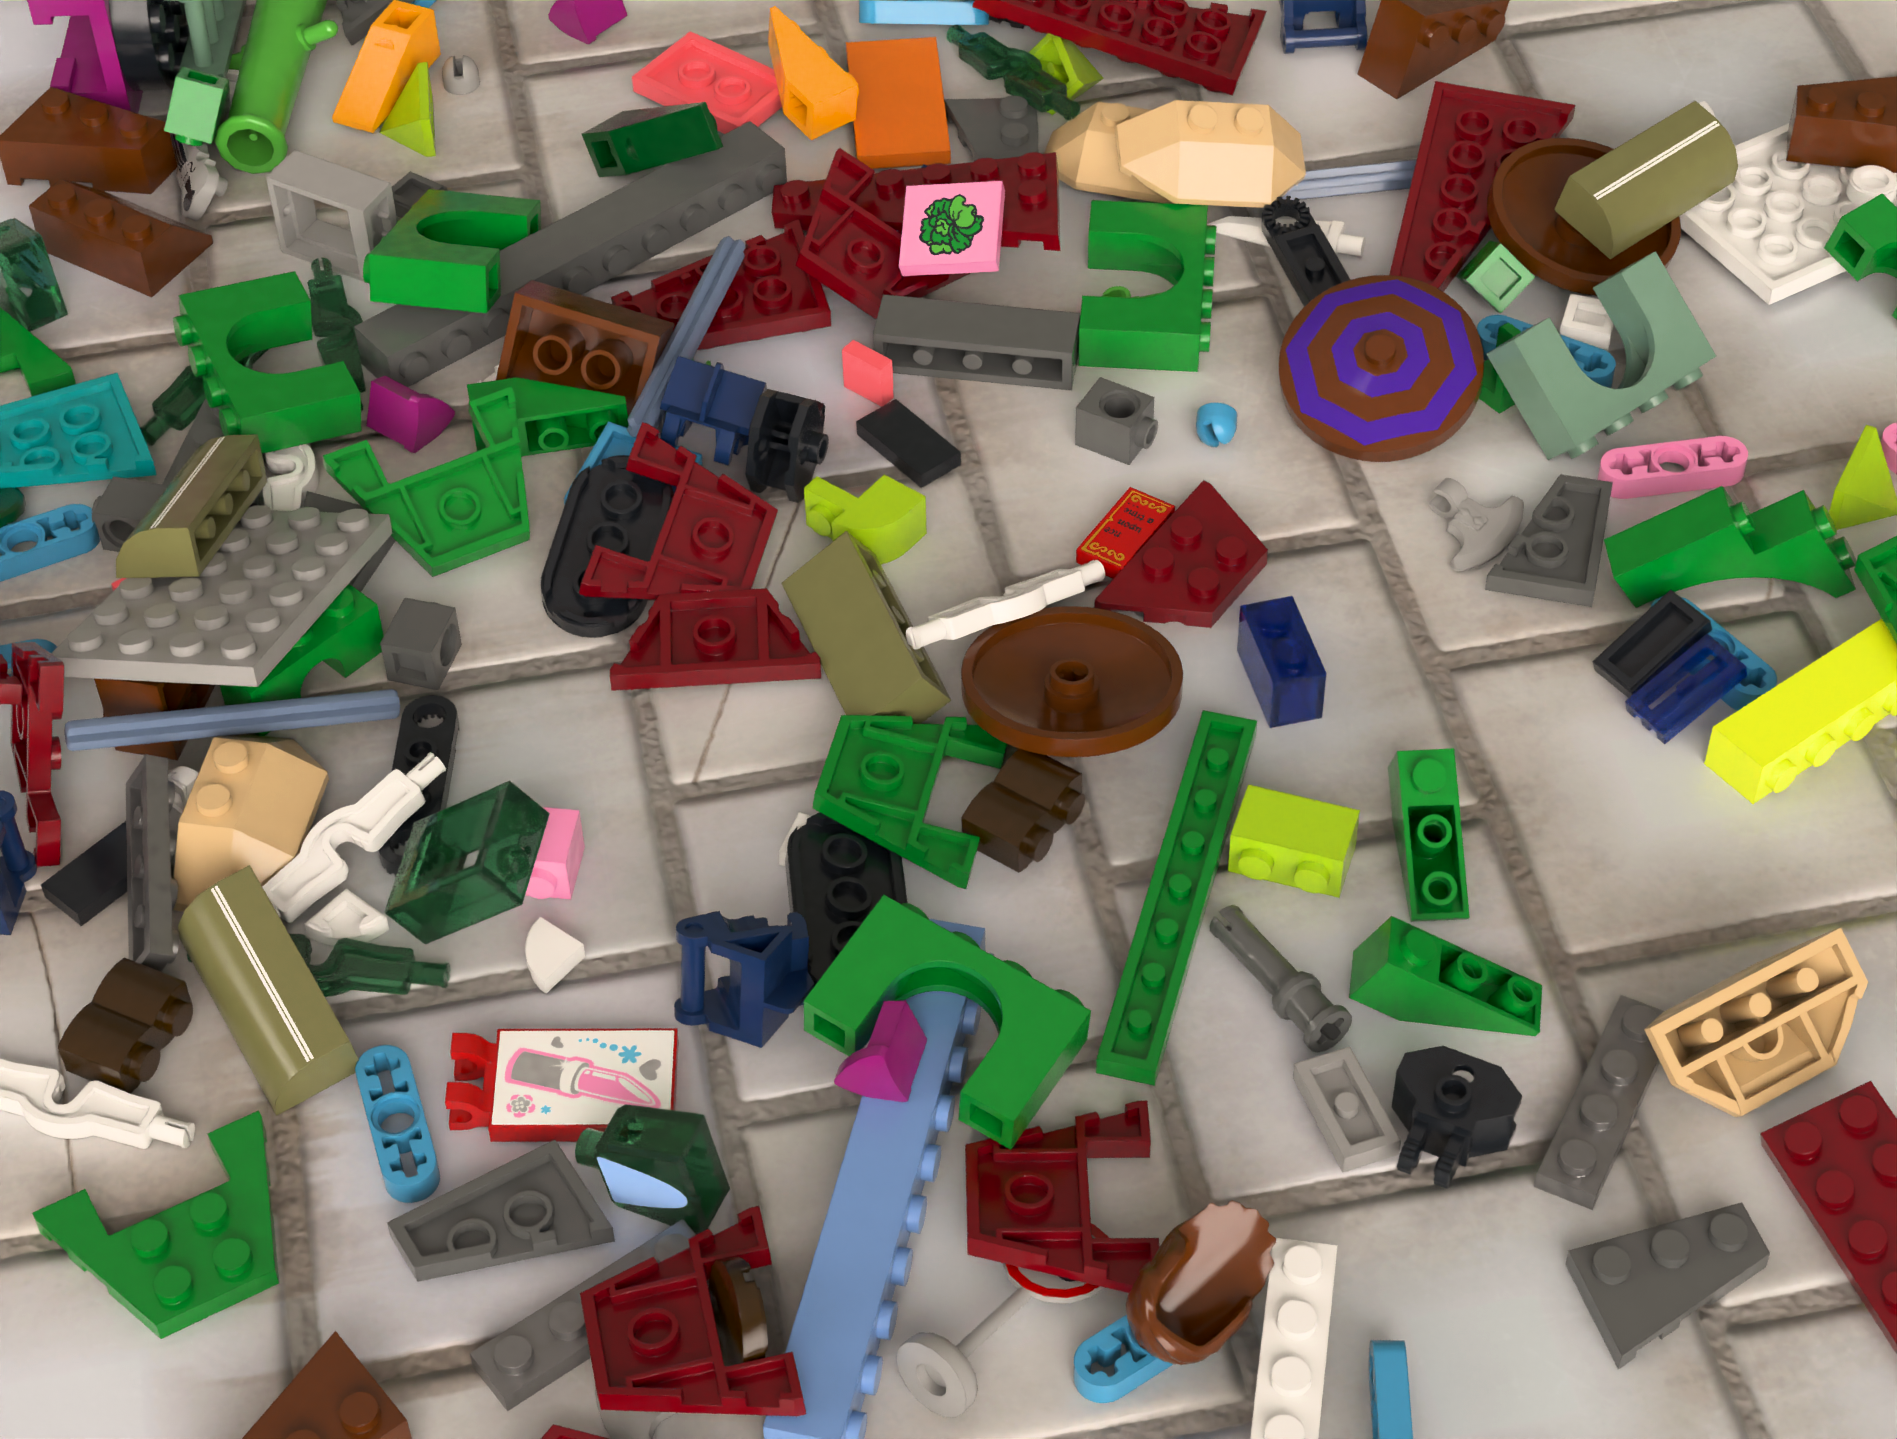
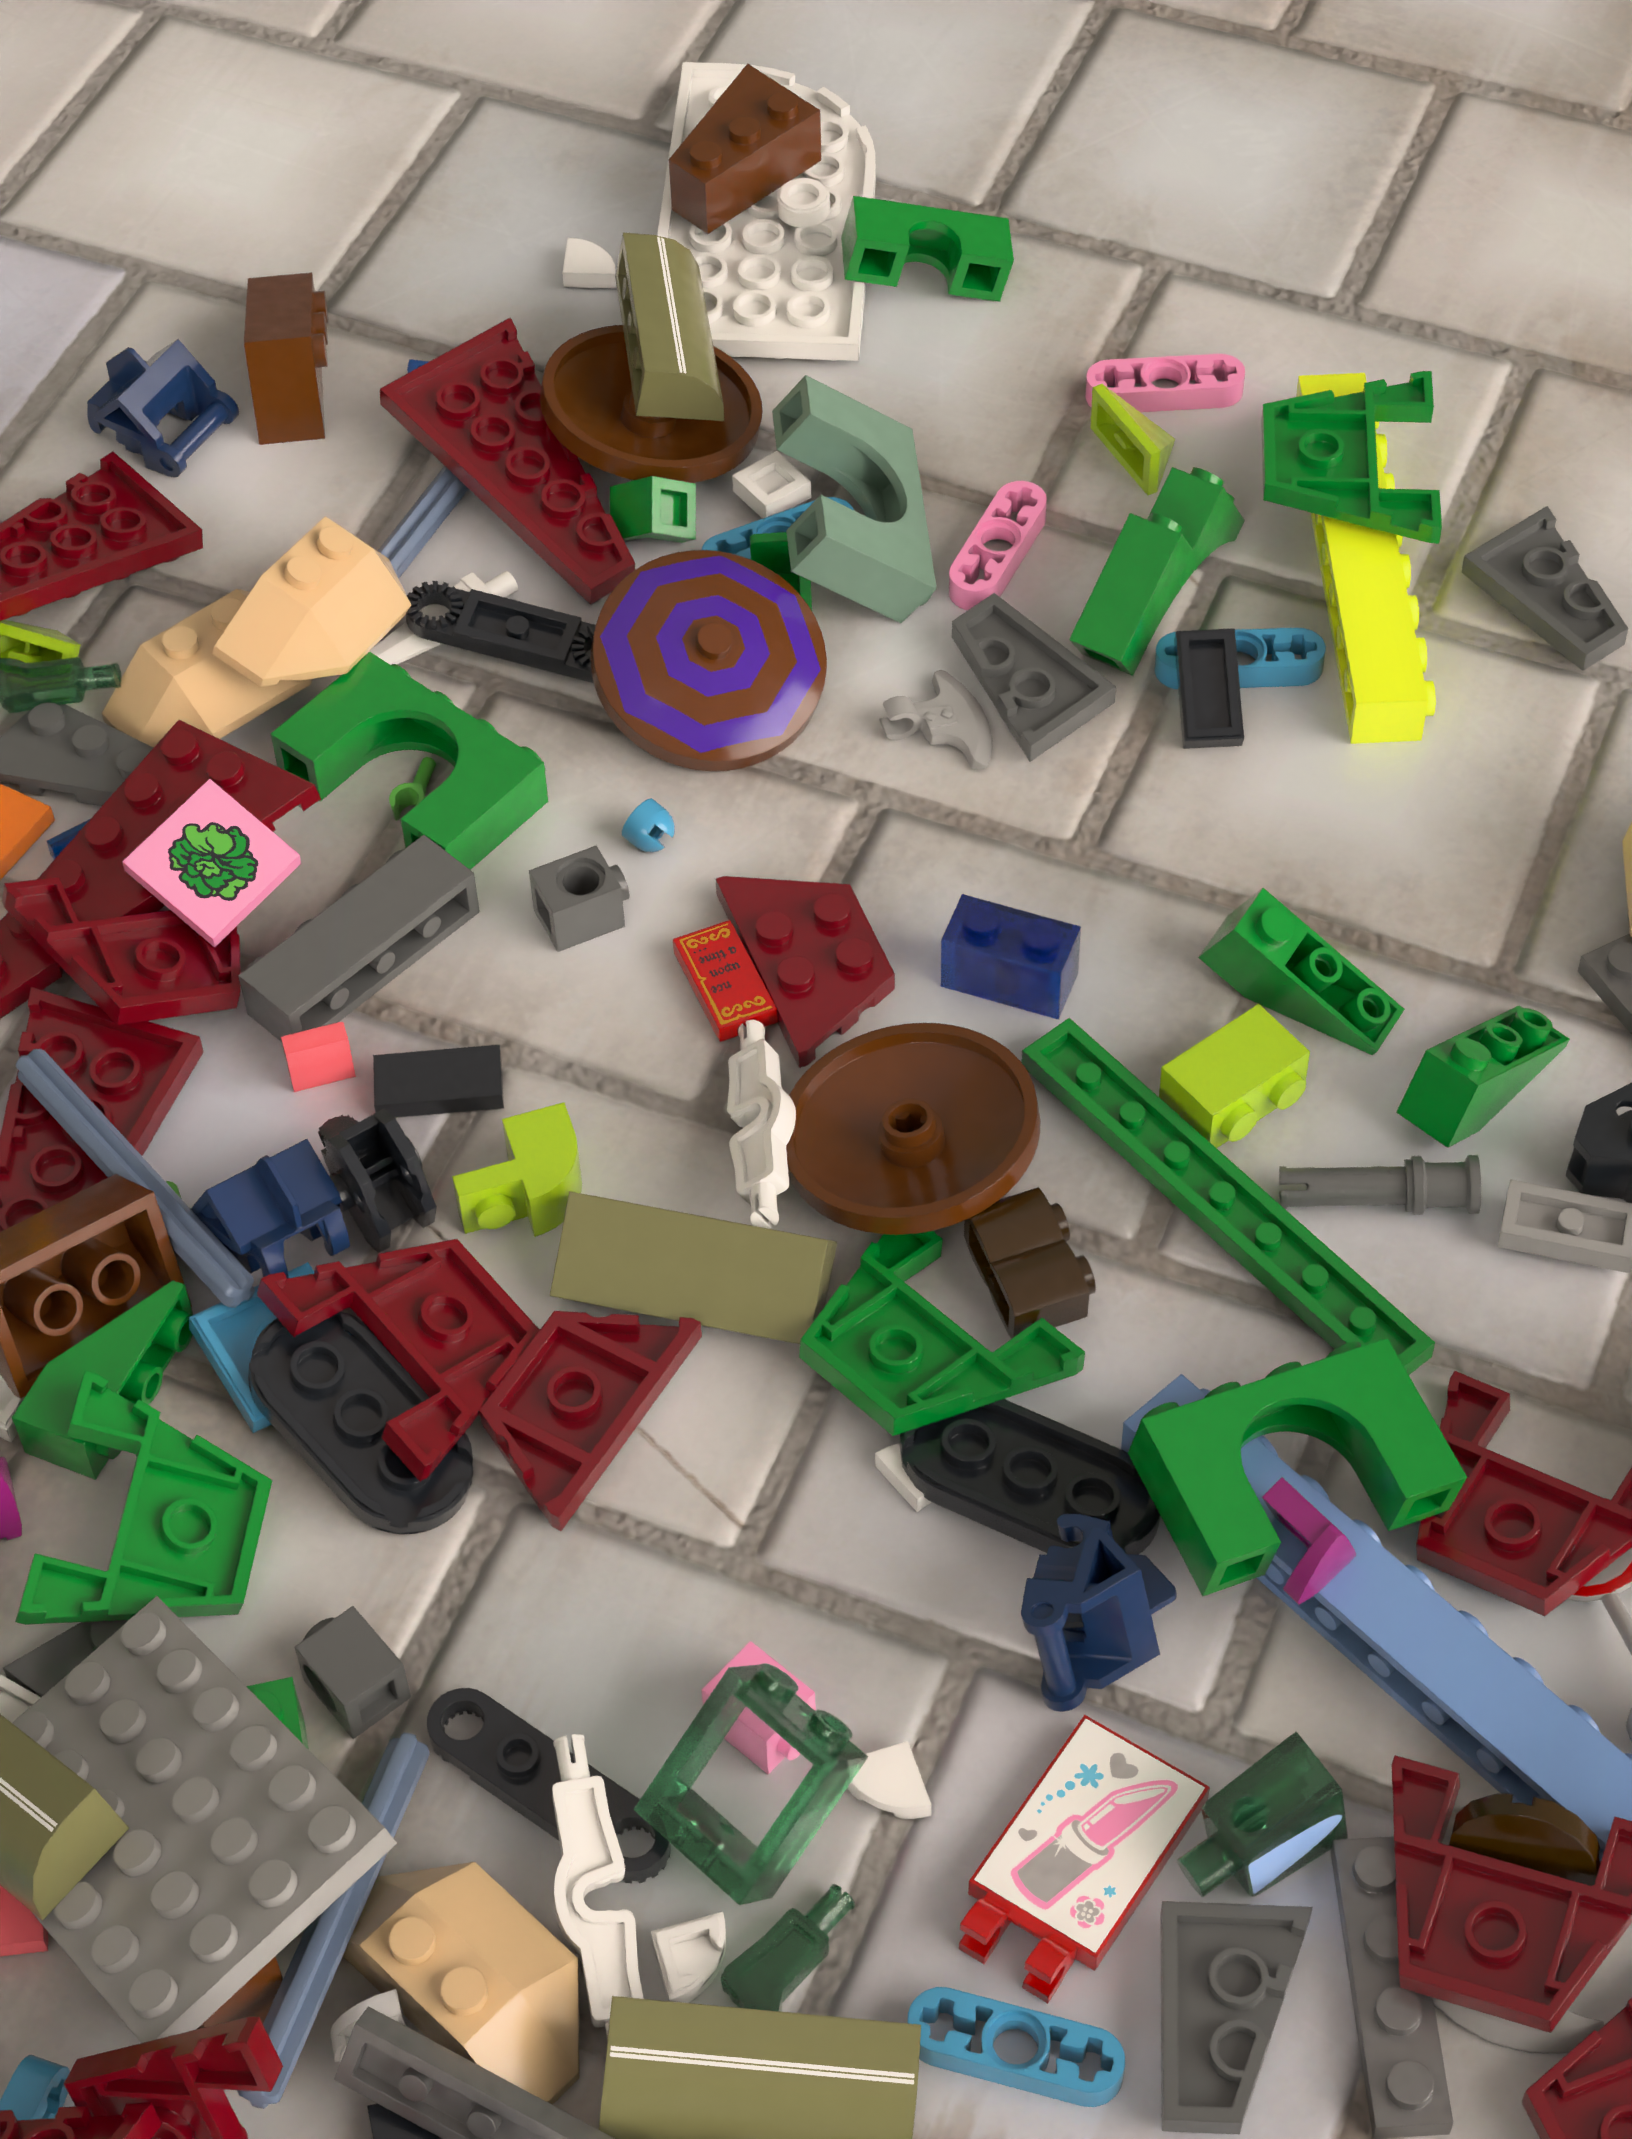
camera: 55 degrees left, 5 degrees up
(1670, 726) = (1277, 742): clear blue tile -> none

